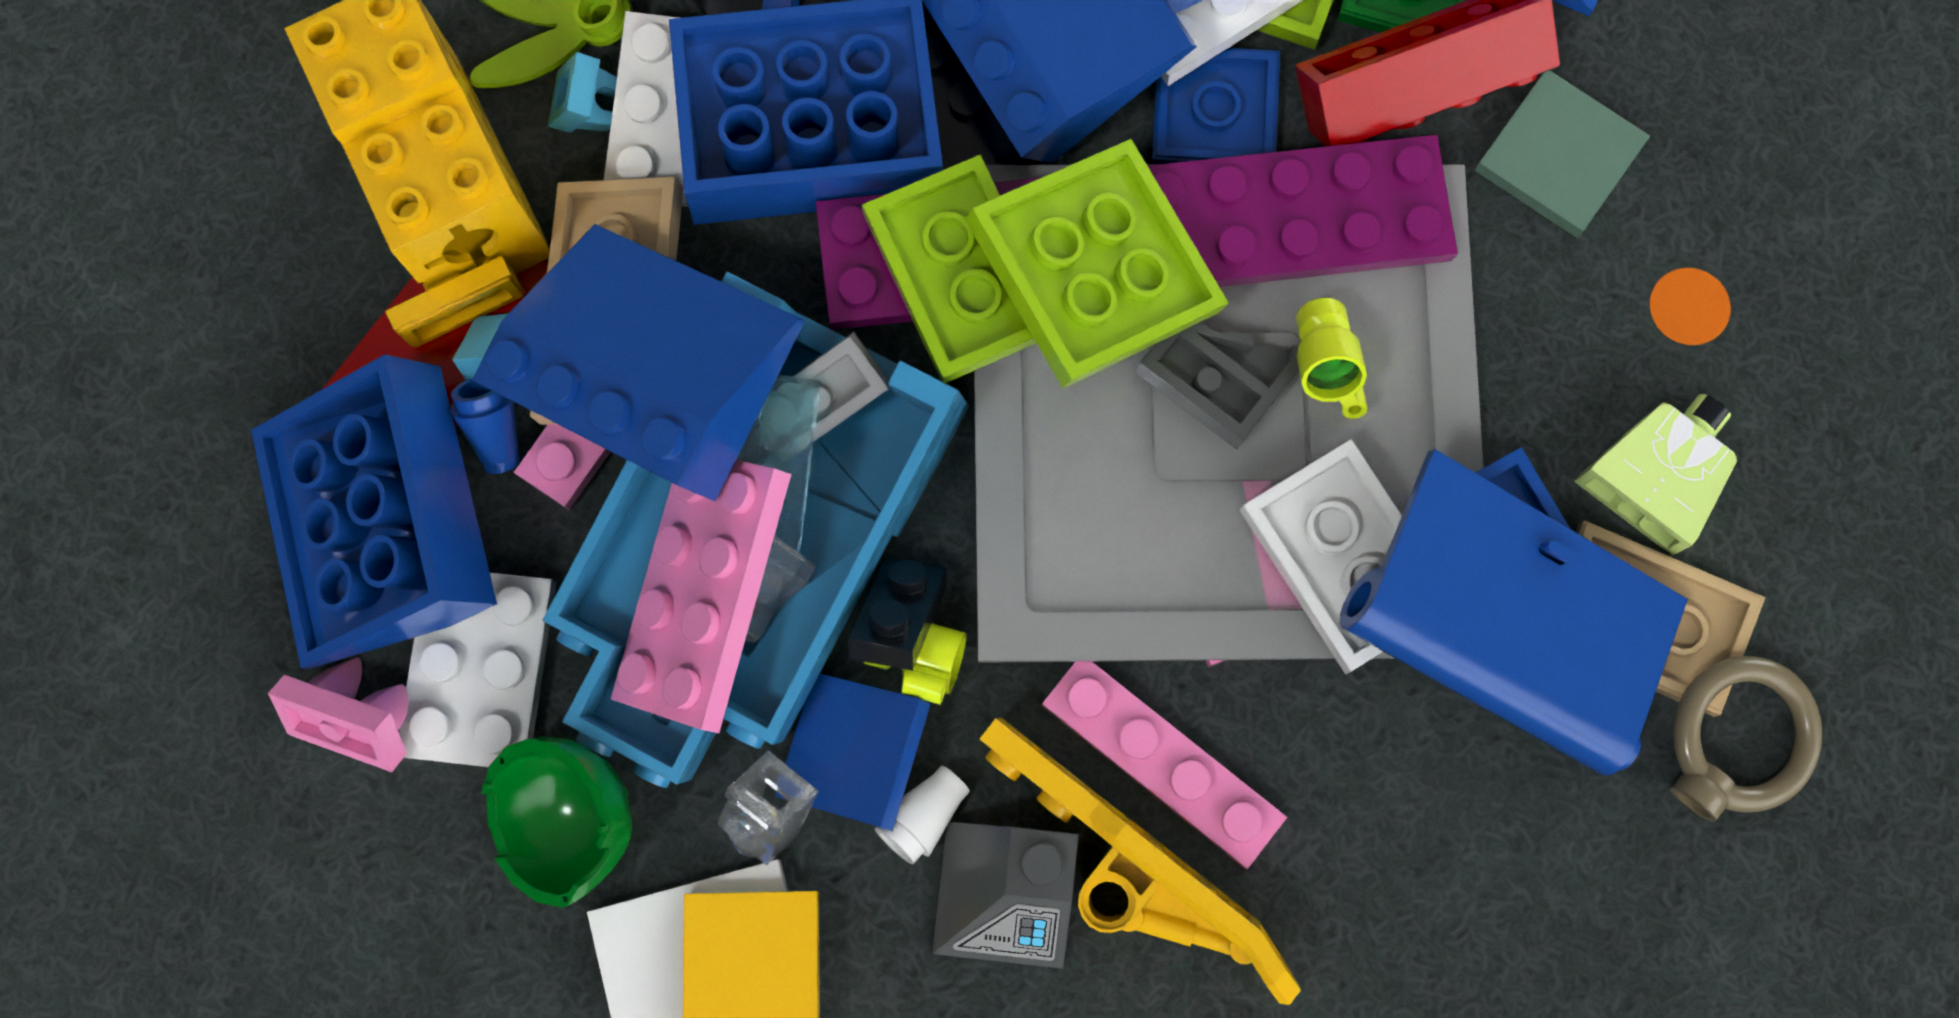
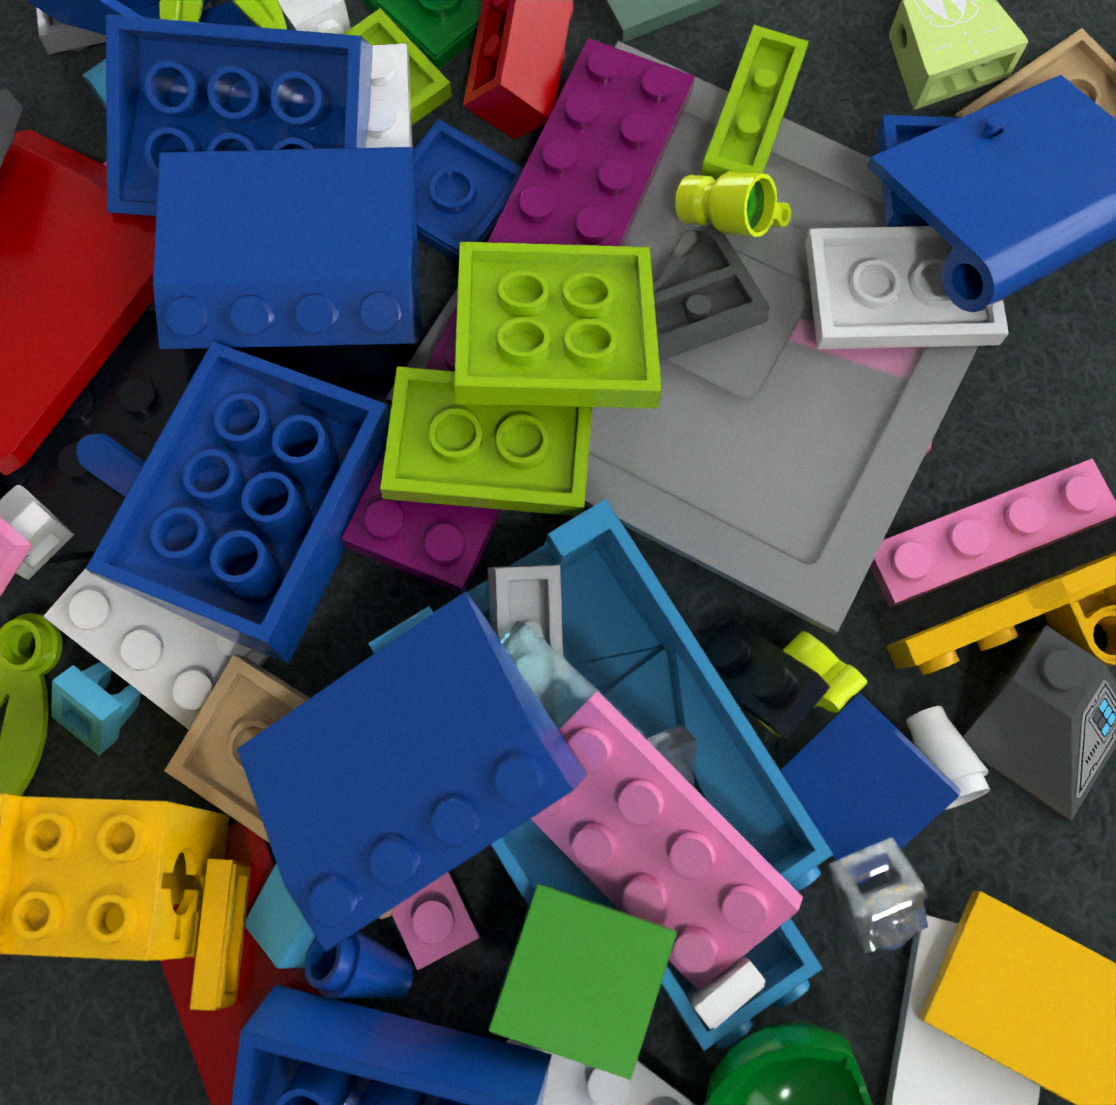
camera: 65 degrees left, 5 degrees down
(561, 591) = (582, 980): none -> bright green tile
(619, 717) = (726, 992): none -> white tile
(1458, 326) = (755, 103): none -> lime plate

